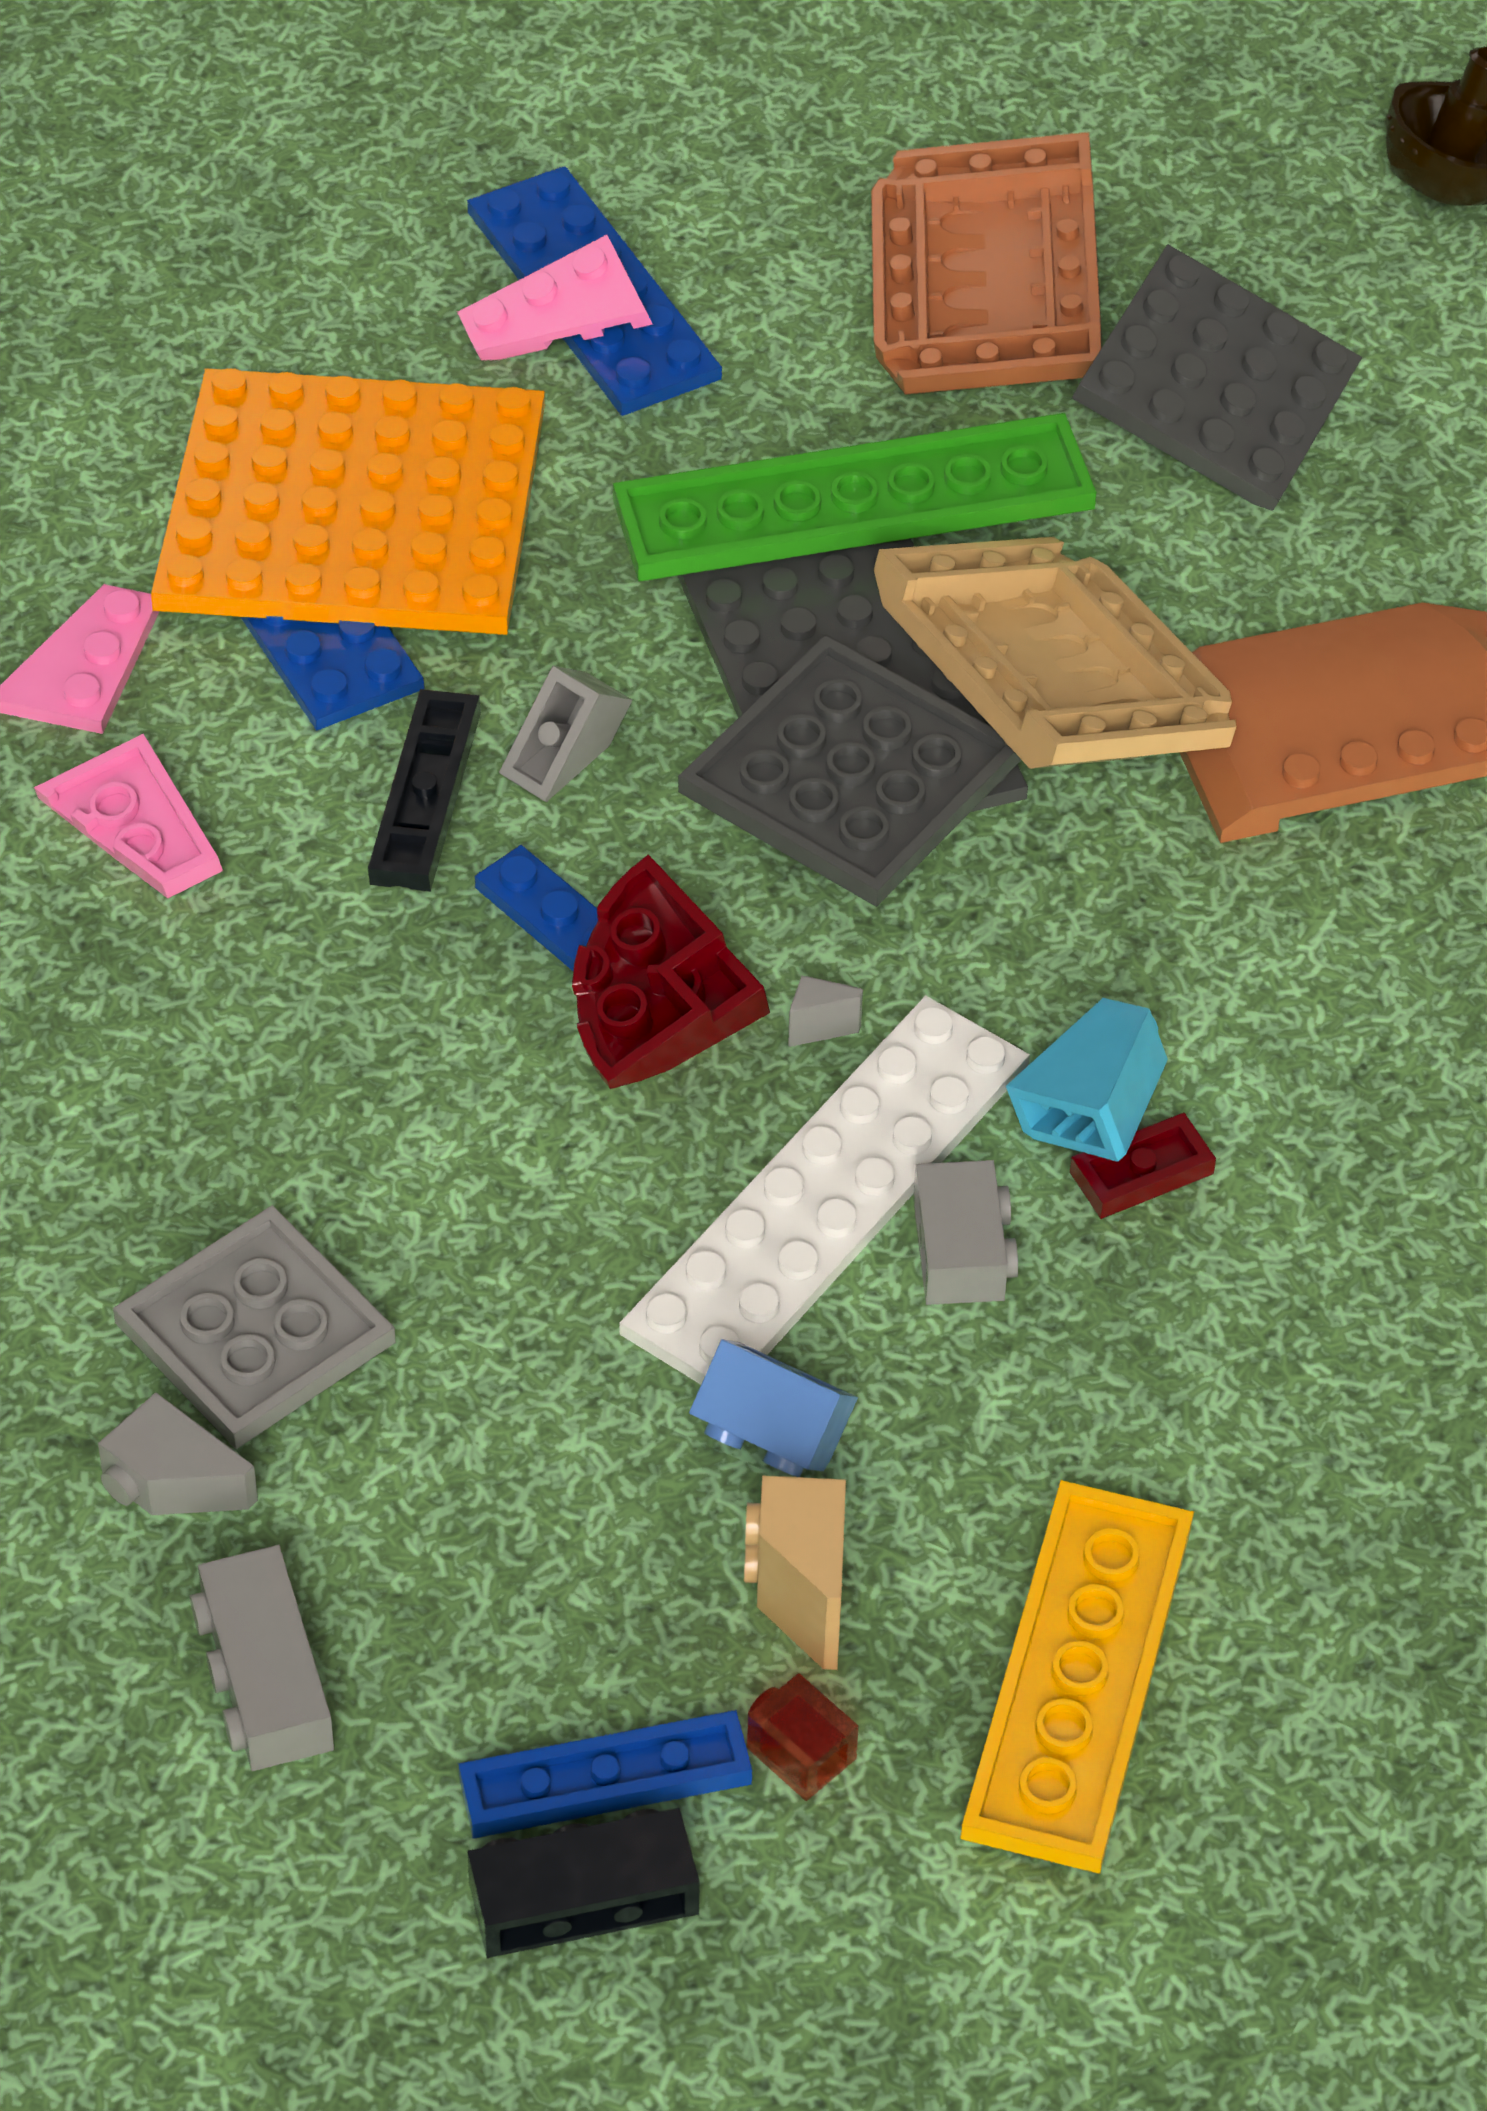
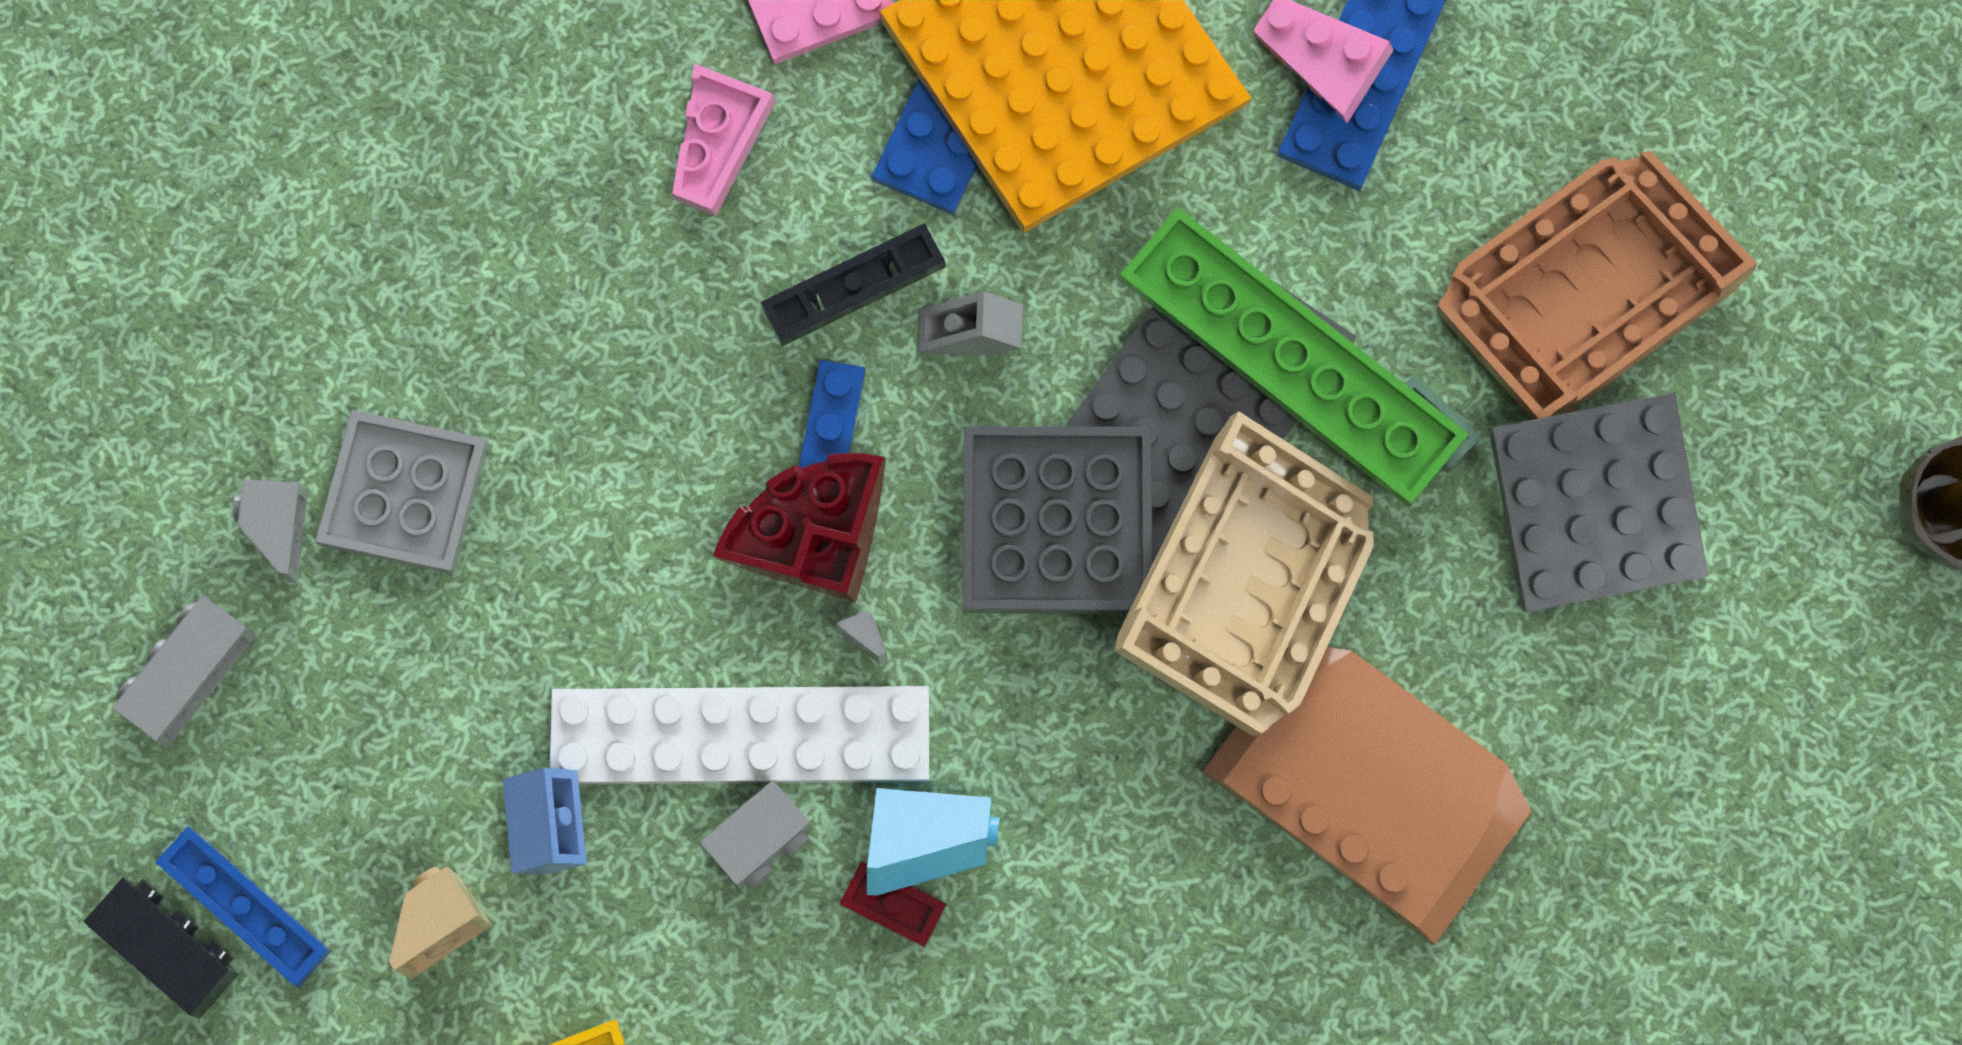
camera: 55 degrees right, 25 degrees up
(801, 1736) = (337, 995): clear red brick -> none

